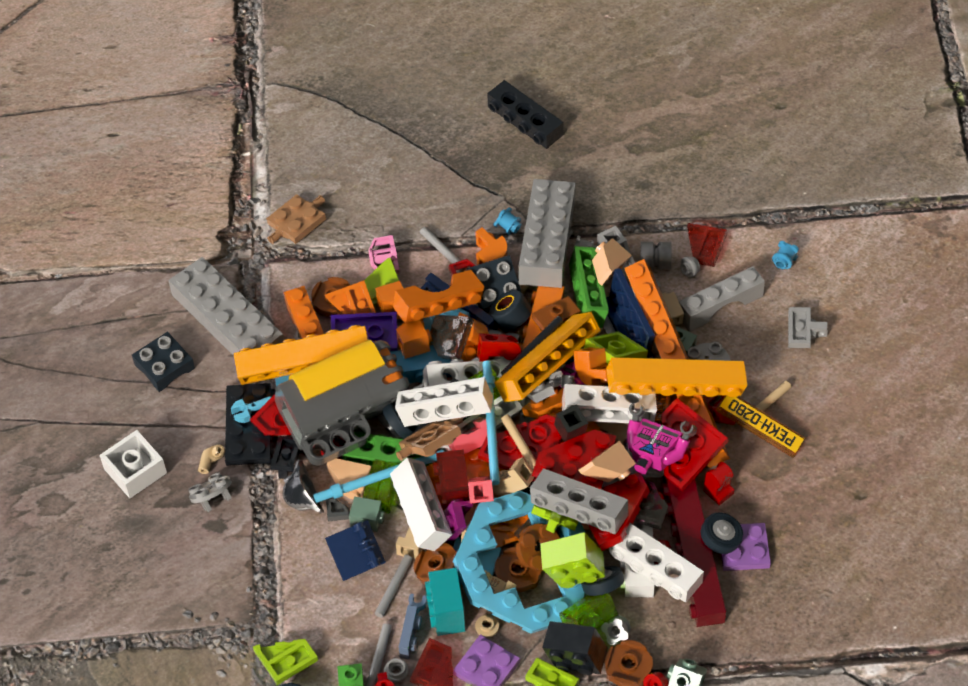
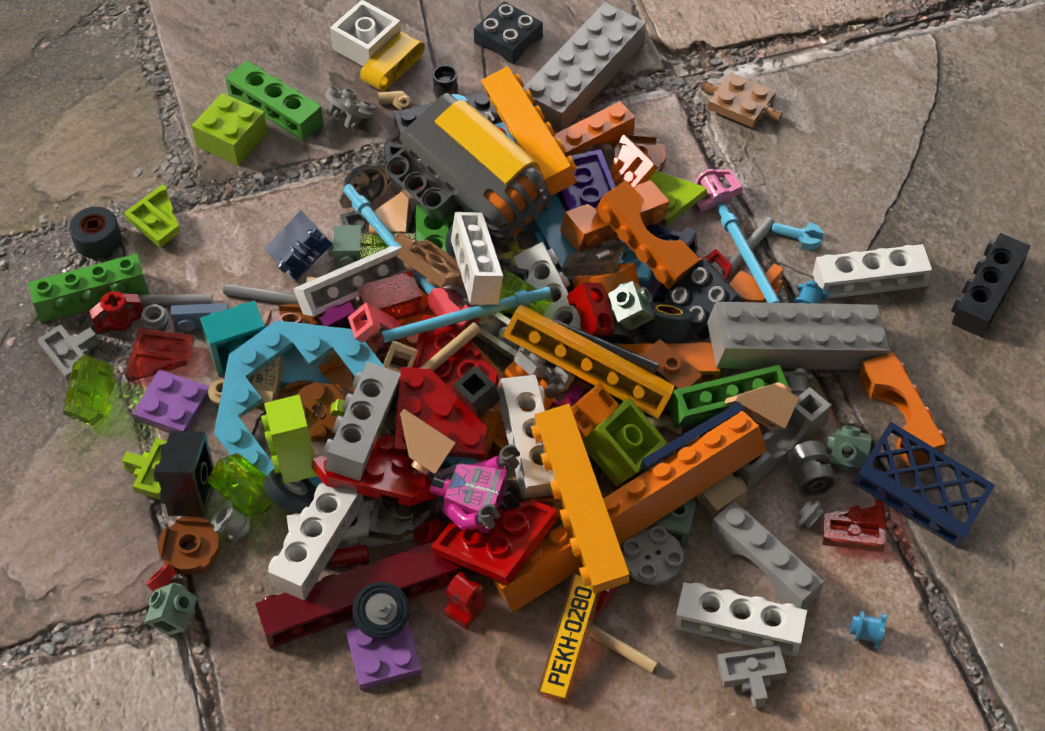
camera: 75 degrees right, 0 degrees up
(175, 459) = (392, 61): none -> yellow beam
(176, 560) = (279, 102): none -> bright green brick
(205, 586) = (229, 129): none -> lime brick
(206, 416) = (445, 80): none -> black wheel
(421, 253) = (731, 225): none -> medium azure bar
(450, 213) = (802, 235): none -> medium azure bar
(493, 178) = (873, 271): none -> white brick
(510, 320) = (631, 305): none -> sand green brick
(641, 189) = (887, 381): none -> orange arch
(645, 228) = (848, 458): none -> sand green brick
(696, 205) = (916, 506): none -> dark blue fence
(754, 351) = (750, 631): none -> white brick

